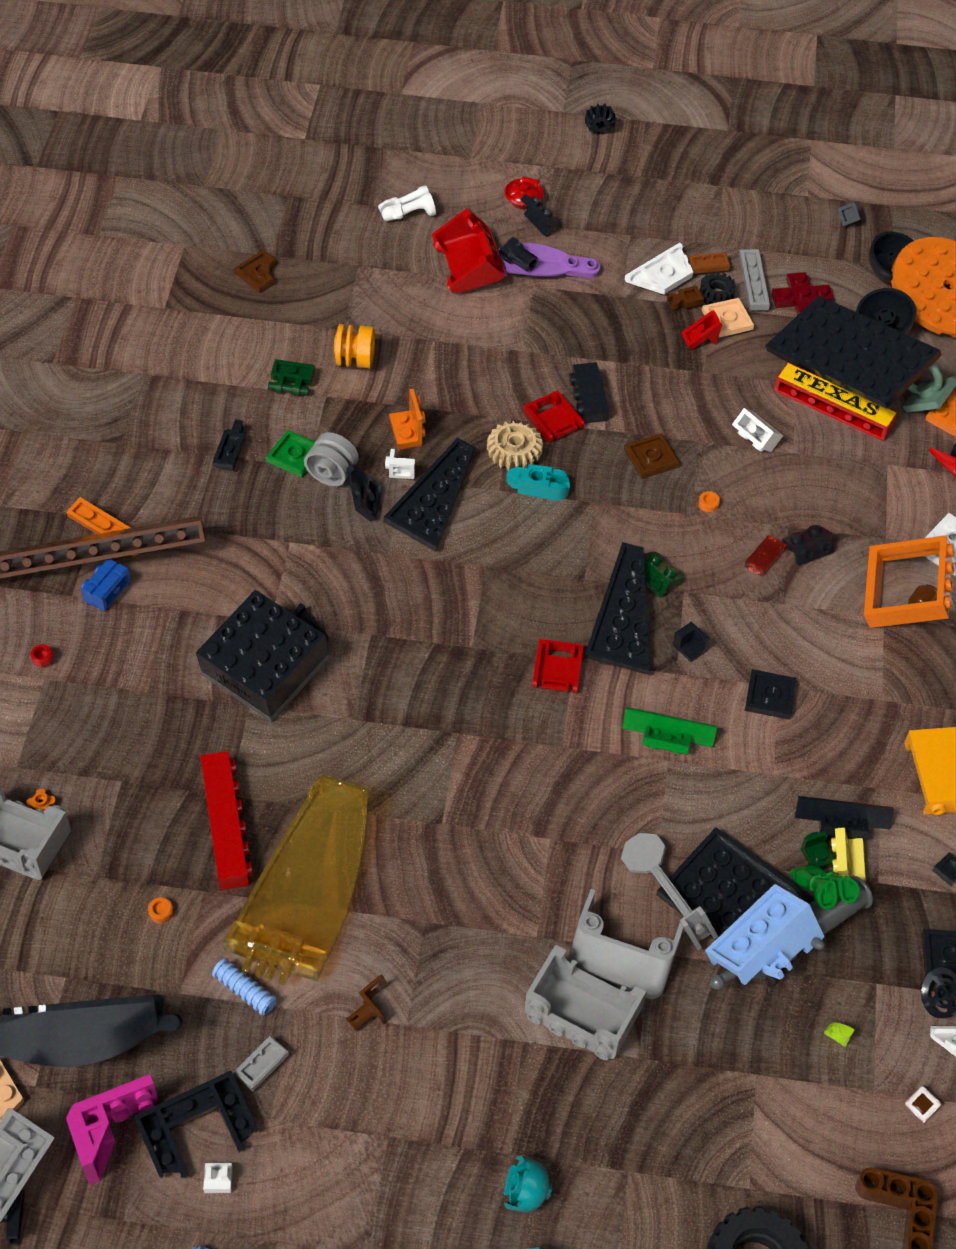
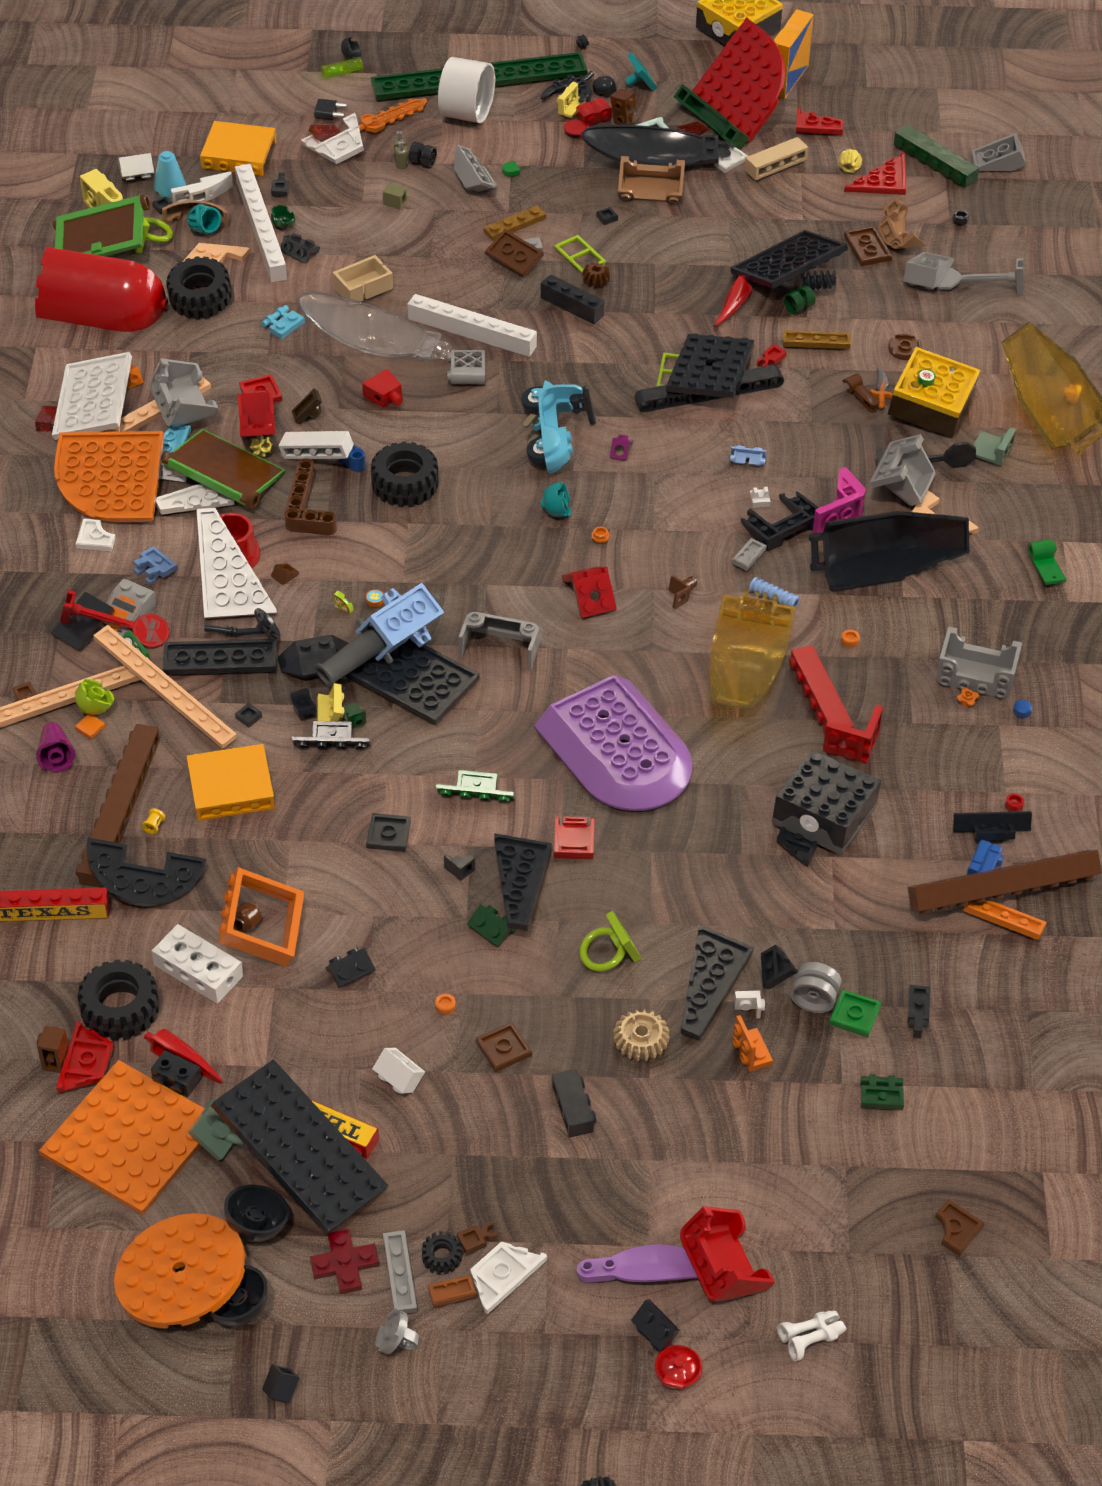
camera: 175 degrees right, 5 degrees down
(79, 622) = (992, 825): none -> black bracket
(204, 729) = (858, 742): none -> red bracket
(354, 346) = (824, 1117): light orange wheel -> none
(467, 790) = (622, 775): none -> medium lavender piece
(468, 1124) = (600, 535): none -> orange plate
(497, 1008) = (587, 581): none -> red bracket
(515, 252) = (676, 1258): black piece -> none
(522, 531) = (619, 937): none -> lime tile
(539, 482) = (600, 1000): teal piece -> none
(555, 421) = (605, 1076): red container -> none
(582, 1006) = (525, 597): light grey windscreen -> none
(645, 855) = (487, 697): light grey piece -> none
(705, 328) = (457, 1186): red slope -> none
(732, 316) = (429, 1216): light nougat plate -> none
(759, 227) = (396, 1333): none -> light grey tile
(765, 555) = (391, 954): clear red plate -> none
(795, 1042) = (373, 598): none -> tile
(826, 885) = (356, 673): green piece -> none
(869, 941) = (304, 654): none -> black wedge
(881, 868) = (302, 703): none -> black bracket

